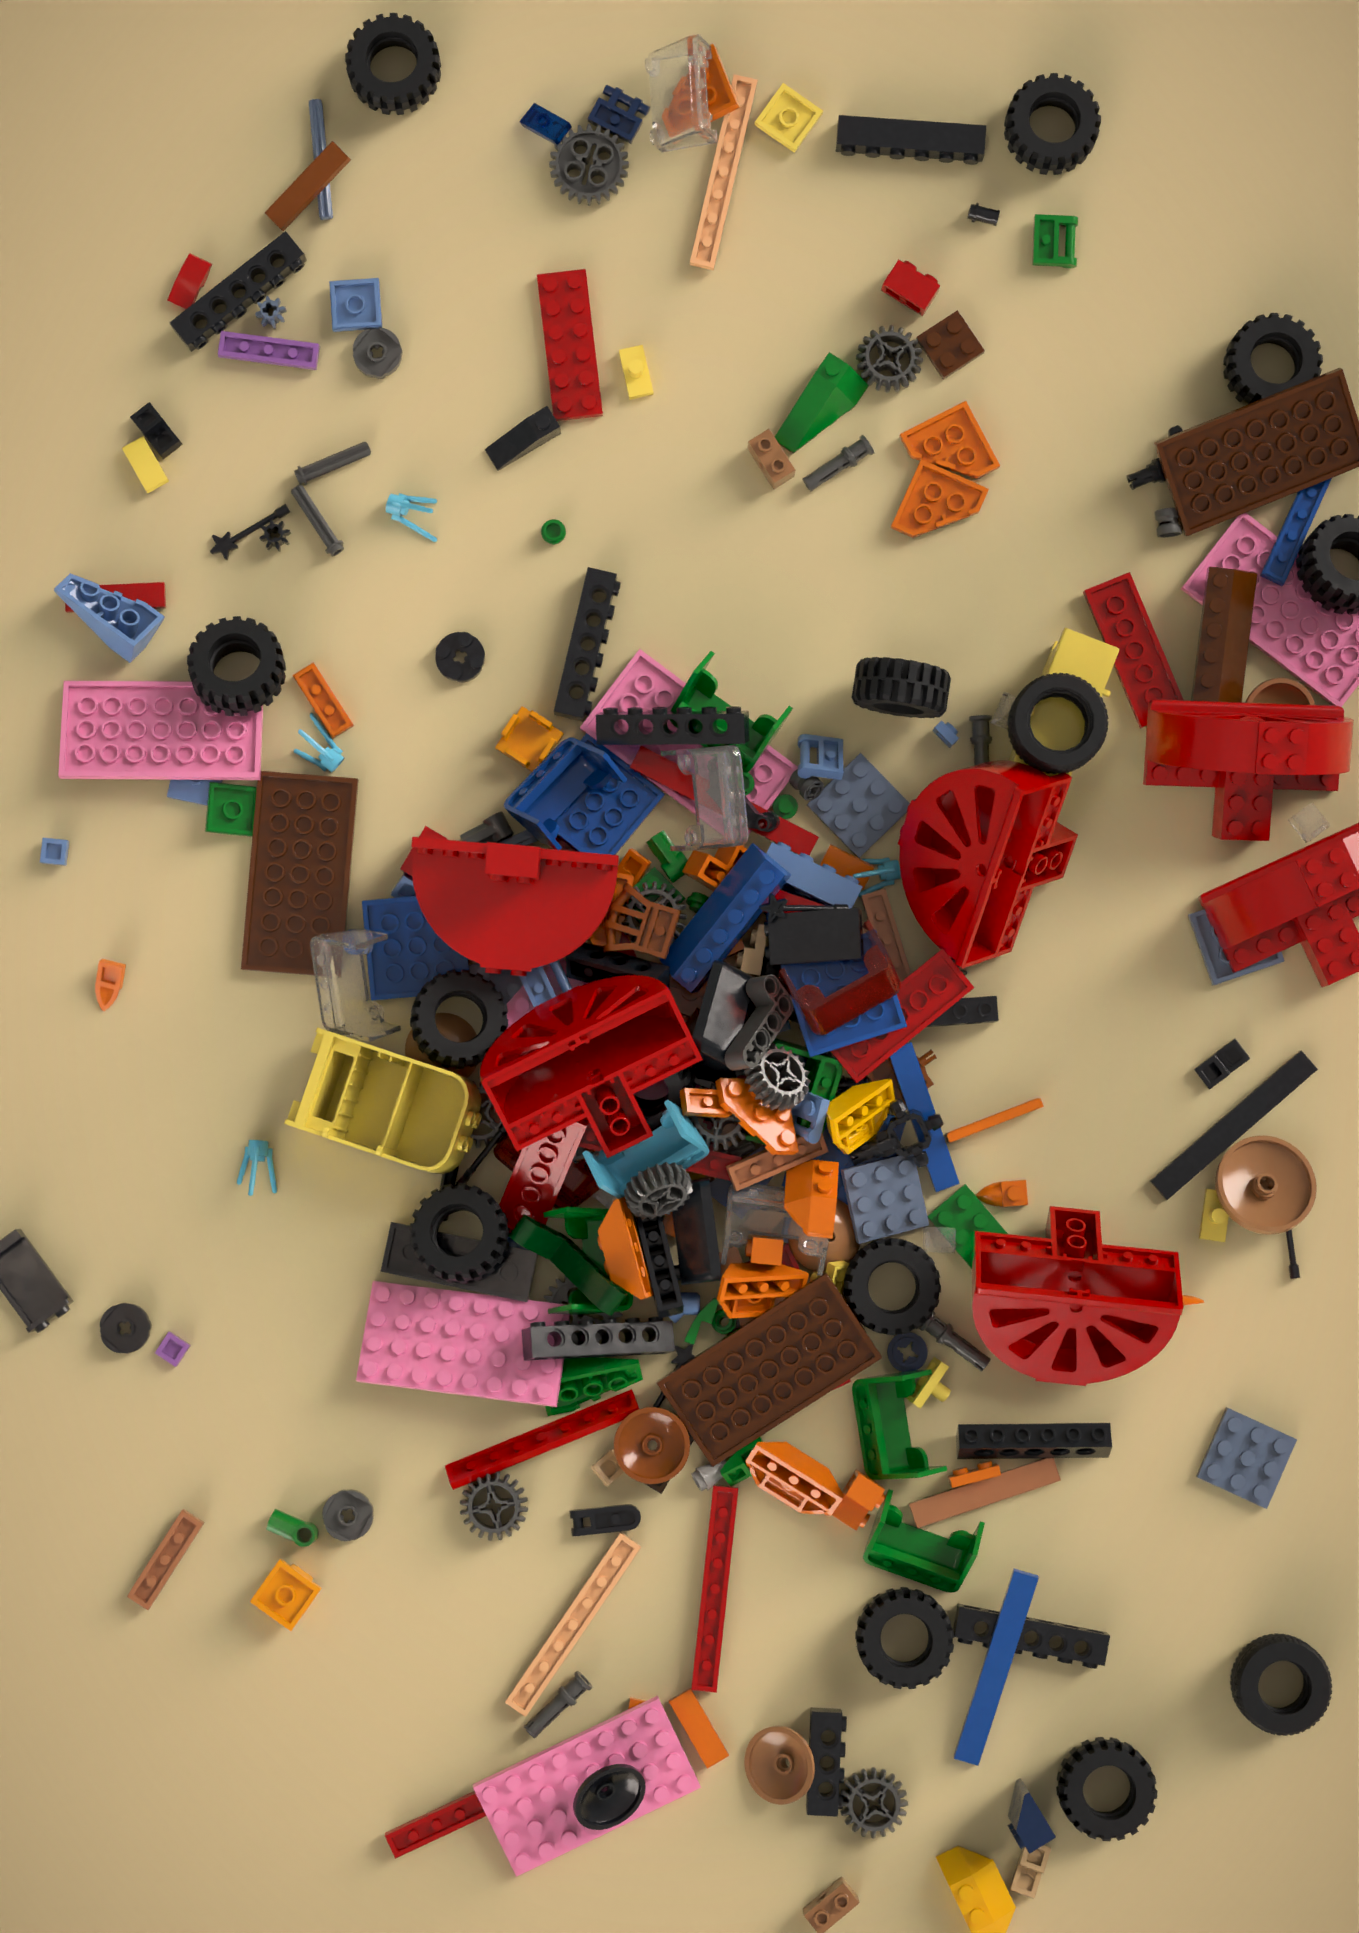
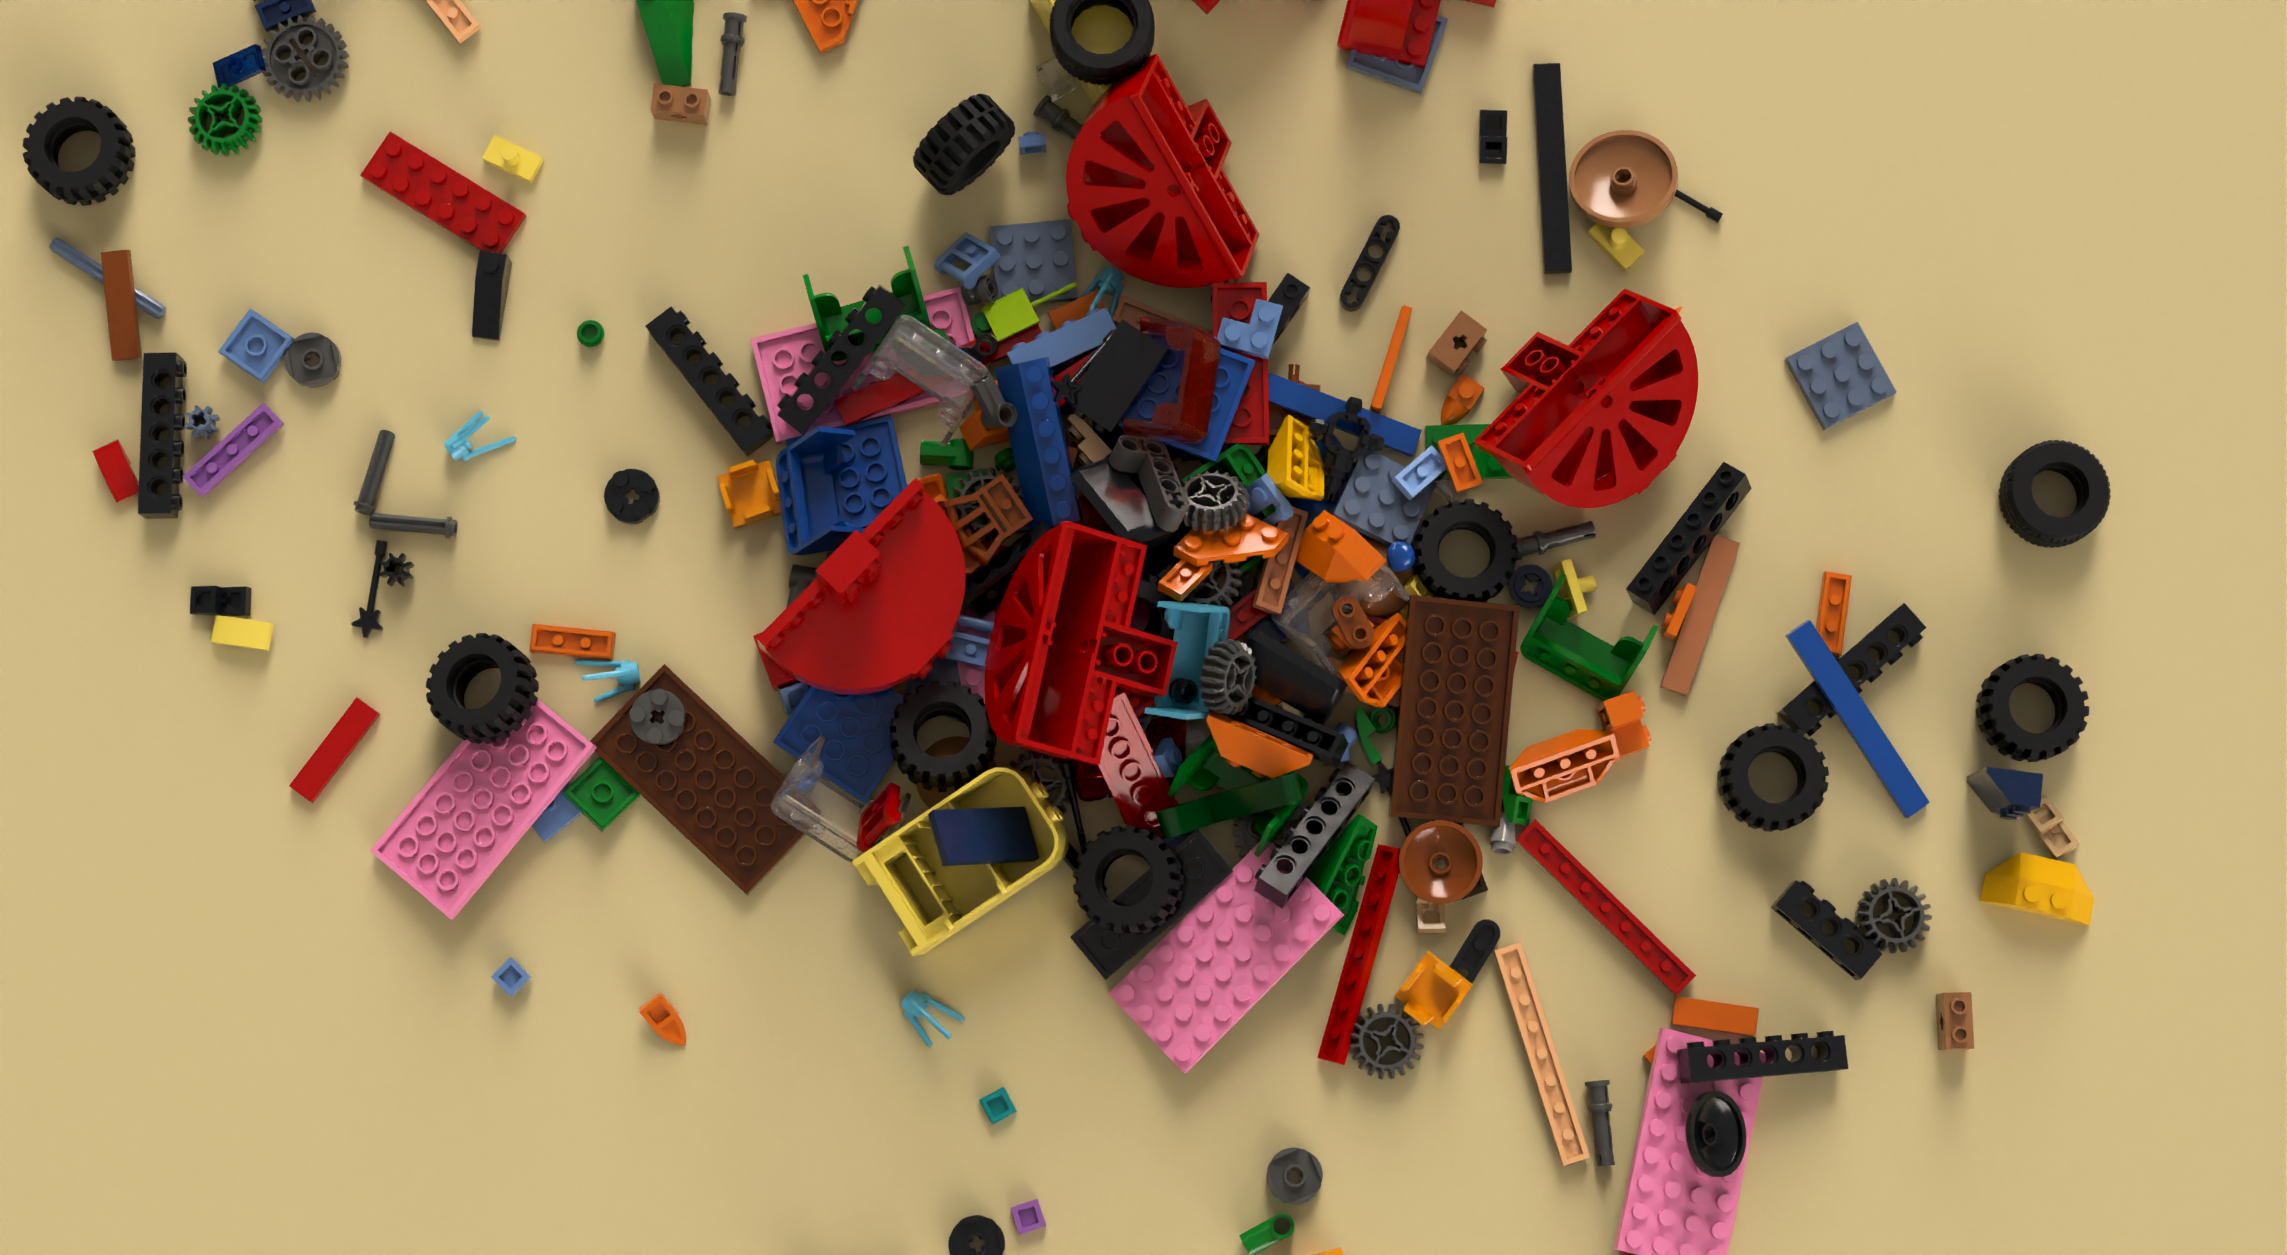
camera: 50 degrees left, 5 degrees down
(118, 621) = (358, 762): medium blue wedge -> none
(233, 1265) = (997, 1105): none -> teal tile
(307, 793) = (658, 701): none -> dark grey plate
(365, 1020) = (878, 817): none -> red plate
(407, 1106) = (983, 836): none -> dark blue tile
(509, 145) = (235, 101): none -> green gear
(555, 1512) = (1432, 991): none -> light orange panel
(570, 1191) = (1168, 757): none -> medium blue plate
(628, 1160) = (1189, 694): none -> black bush
(722, 866) = (995, 411): none -> dark grey piece
(733, 1835) = (1830, 1057): none -> black brick
(768, 1769) = (1795, 984): medium nougat dish -> none
(770, 1249) = (1350, 623): none -> dark orange plate
(809, 822) = (1015, 312): none -> lime piece
(850, 1243) = (1400, 556): none -> blue piece
(919, 1553) = (1712, 709): green windscreen -> none
(925, 1209) = (1420, 473): none -> light blue plate
(927, 1012) = (1255, 337): none -> medium blue plate
(954, 1231) = (1459, 463): none -> orange plate
(1054, 1048) = (1372, 264): none -> black beam
(1057, 1153) = (1461, 329): none -> medium nougat brick
(1064, 1587) = (1833, 610): none -> orange tile

